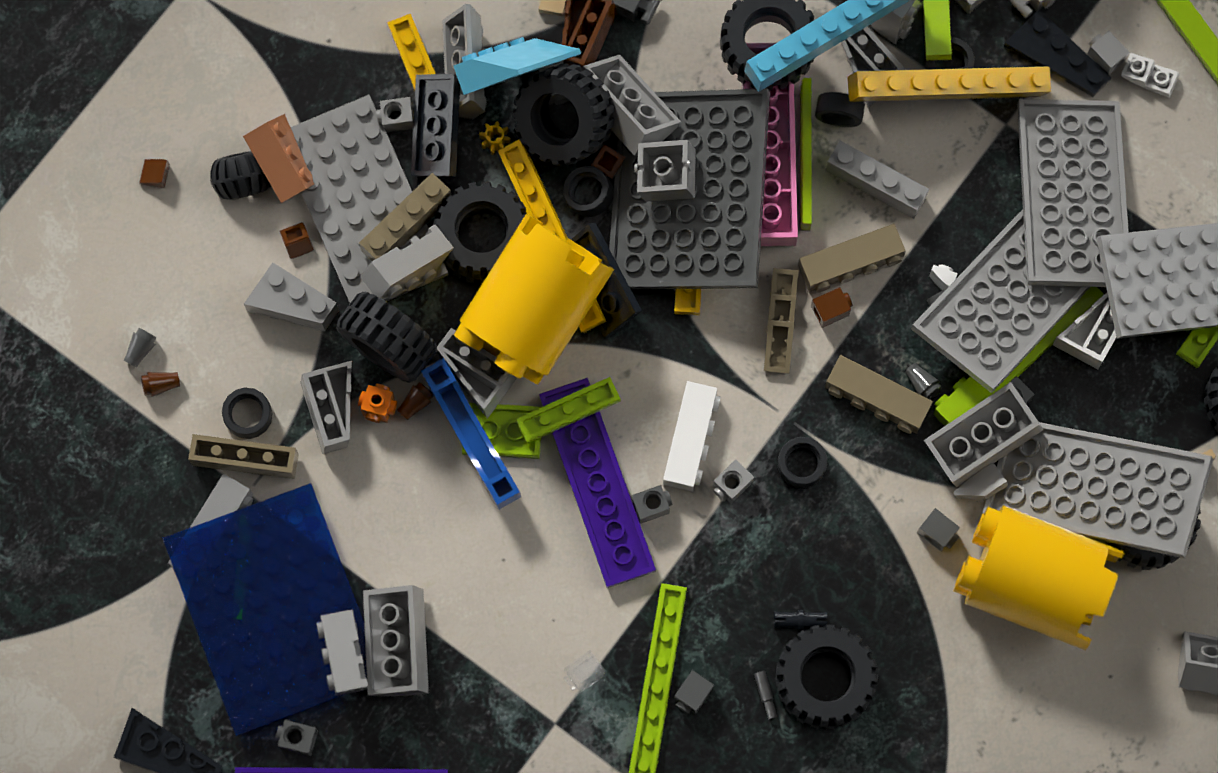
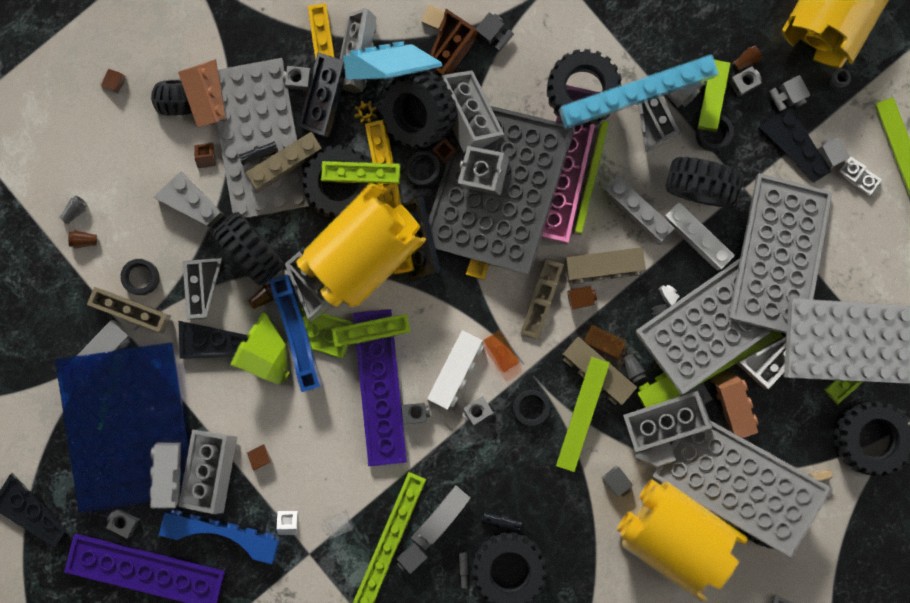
camera: 15 degrees right, 10 degrees up
(364, 475) = (207, 342): none -> black wing
(368, 218) = (258, 153): none -> black pin
(375, 724) = (259, 546): none -> blue arch
(380, 411) = (241, 292): orange brick -> none
(407, 266) = (275, 199): light grey wedge -> none
(436, 469) = (264, 352): none -> lime brick
(459, 610) = (259, 457): none -> reddish brown slope
(508, 208) = (360, 172): none -> lime tile
(516, 689) = (287, 522): none -> white slope
(718, 631) = (441, 518): none -> light grey arch
(745, 400) = (501, 351): none -> clear orange plate
(836, 110) = (624, 151): black tyre -> none
(871, 453) = (582, 414): none -> lime tile
(877, 355) = (604, 341): none -> clear orange plate
(949, 84) = (711, 151): yellow brick -> none
(952, 121) = (705, 182): none -> black tyre
(963, 195) = (699, 237): none -> white brick
(1066, 393) = (735, 403): none -> nougat wedge

